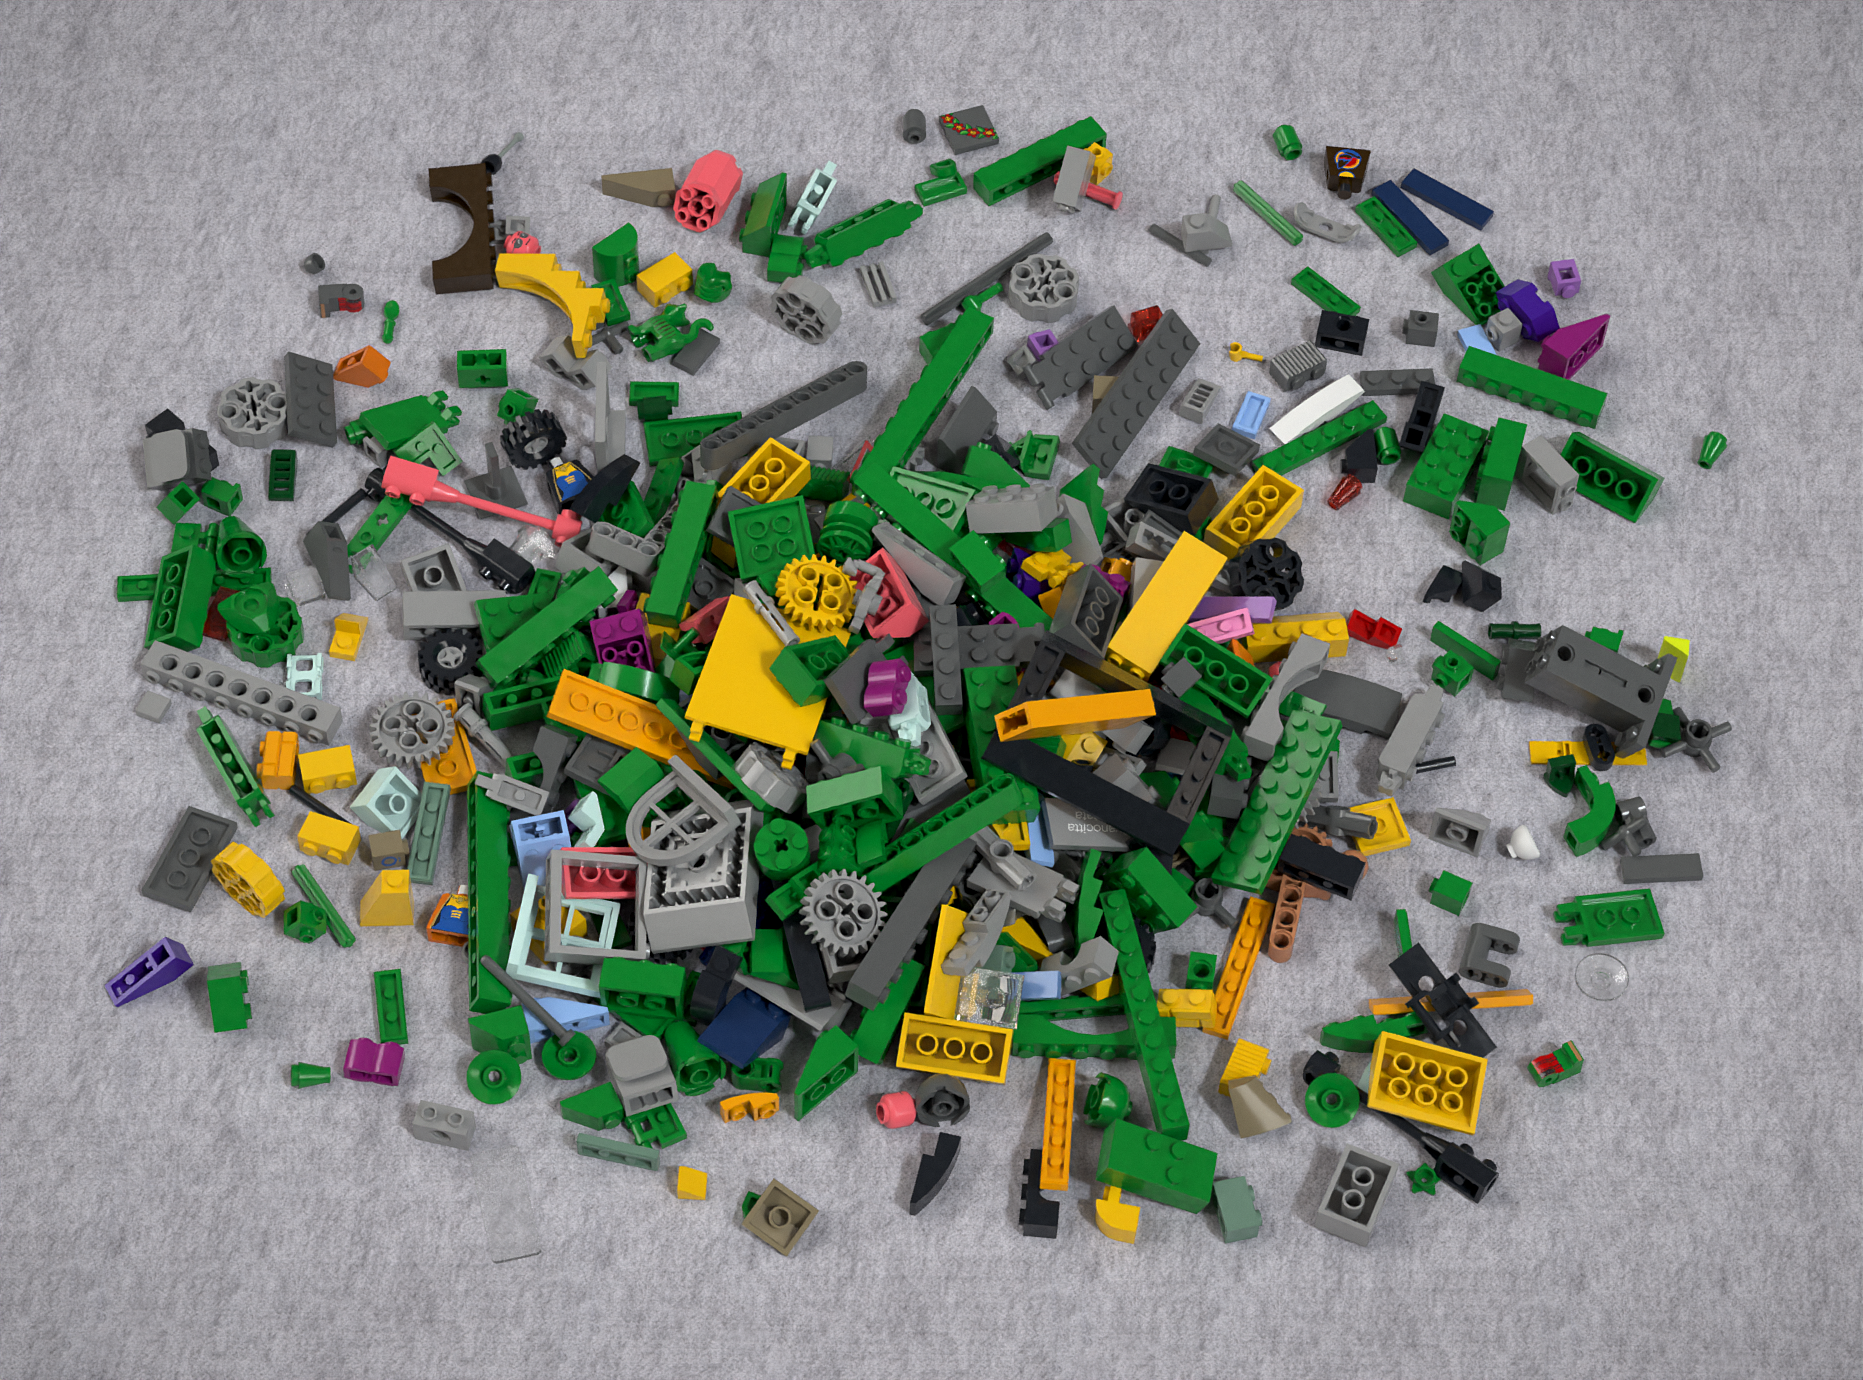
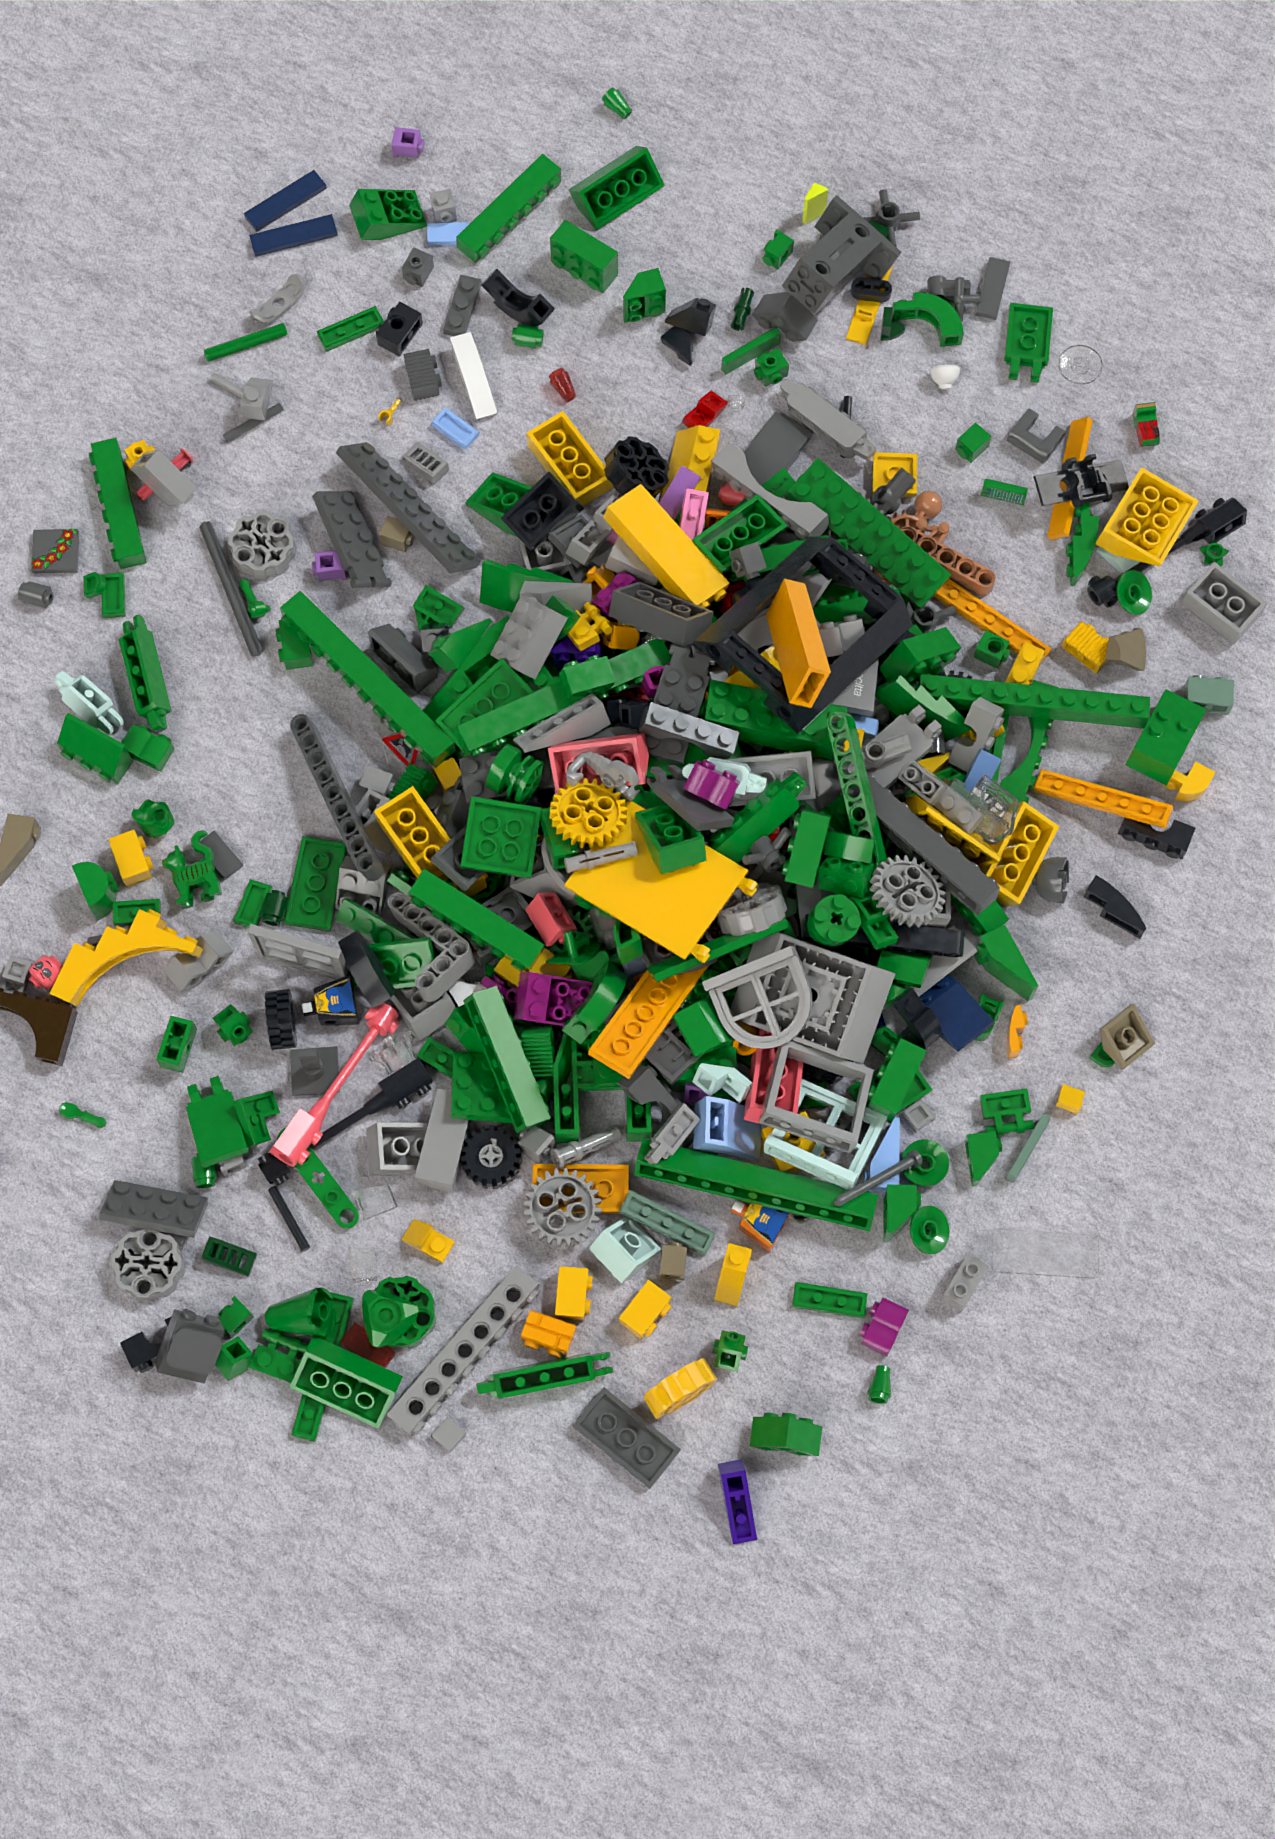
camera: 70 degrees left, 15 degrees up
(313, 675) = (458, 1298): light aqua piece -> none
(314, 804) = (607, 1310): black bar -> none
(319, 899) = (710, 1332): green axle -> none
(330, 555) = (342, 1234): dark grey slope -> none
(340, 298) = (38, 1153): dark grey leg -> none
(362, 368) = (131, 1153): orange slope -> none
(608, 335) = (177, 924): dark grey piece -> none
(641, 1074) = (966, 1107): light grey brick -> none
(690, 1061) = (957, 1067): green cone -> none
(707, 191) = (47, 790): coral brick -> none
(806, 310) = (223, 744): light grey connector -> none
(872, 269) = (196, 674): light grey tile -> none
(896, 1110) = (1051, 917): coral head -> none
(1020, 359) = (336, 587): light grey plate -> none
(1107, 1101) = (1091, 758): green cylinder -> none
(1144, 321) = (333, 474): clear red brick -> none
(1226, 449) = (489, 458): dark grey plate -> none
(1287, 142) = (176, 299): green brick -> none
(1321, 866) = (937, 520): black brick -> none
(1322, 439) = (502, 386): green plate -> none
(1345, 170) = (226, 265): dark brown torso -> none
(1361, 458) = (535, 359): black slope -> none
(1386, 226) = (295, 257): green tile -> none
(1446, 466) = (577, 306): green brick -> none
(1460, 830) = (922, 410): light grey slope -> none
(1536, 316) = (423, 179): dark purple brick -> none
(1547, 475) = (611, 224): light grey window -> none
(1572, 346) = (492, 168): magenta slope -> none

